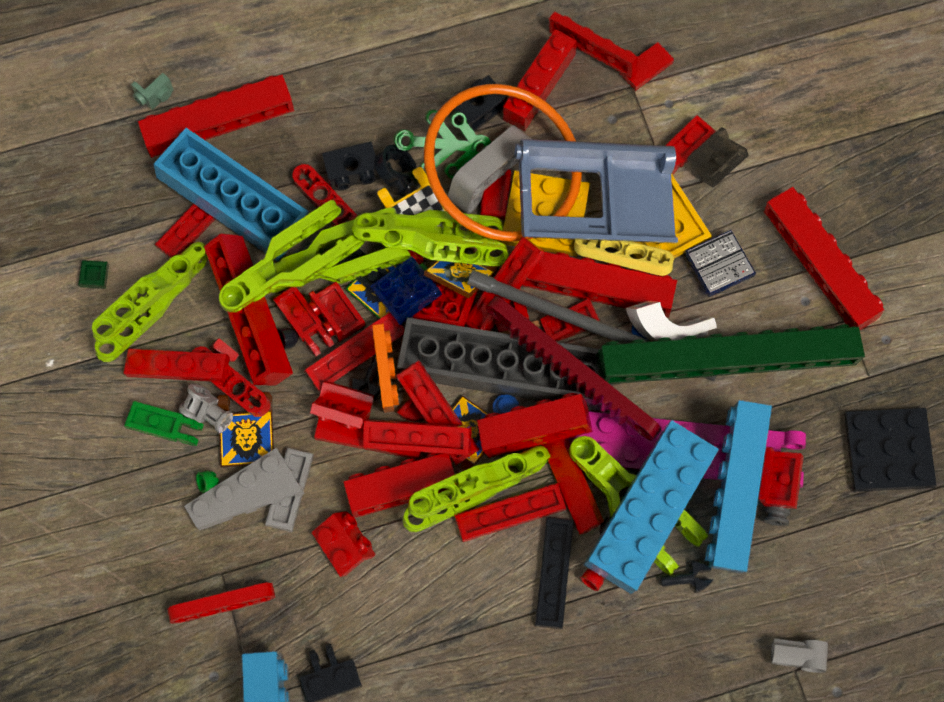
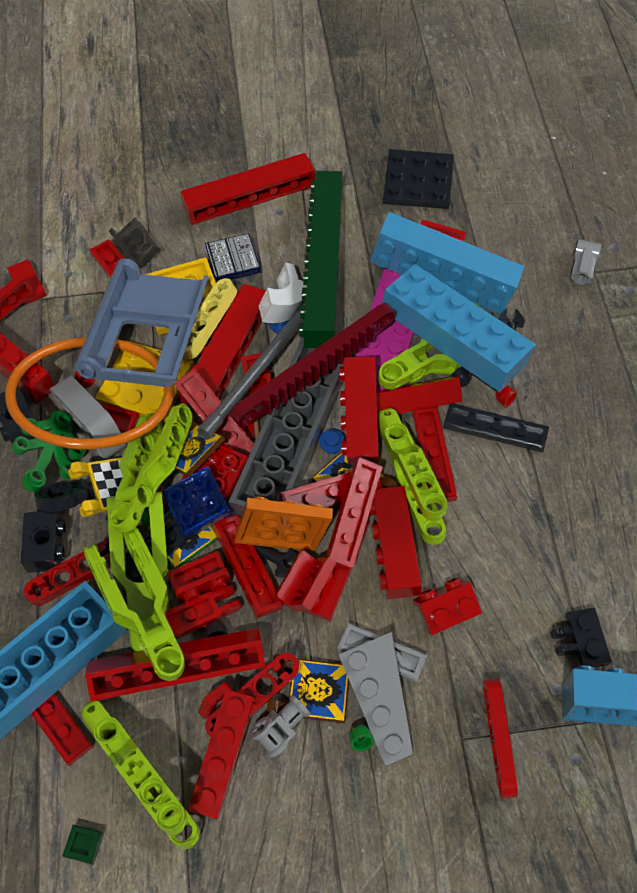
camera: 80 degrees left, 10 degrees down
(161, 423) = (284, 782): green hinge -> none

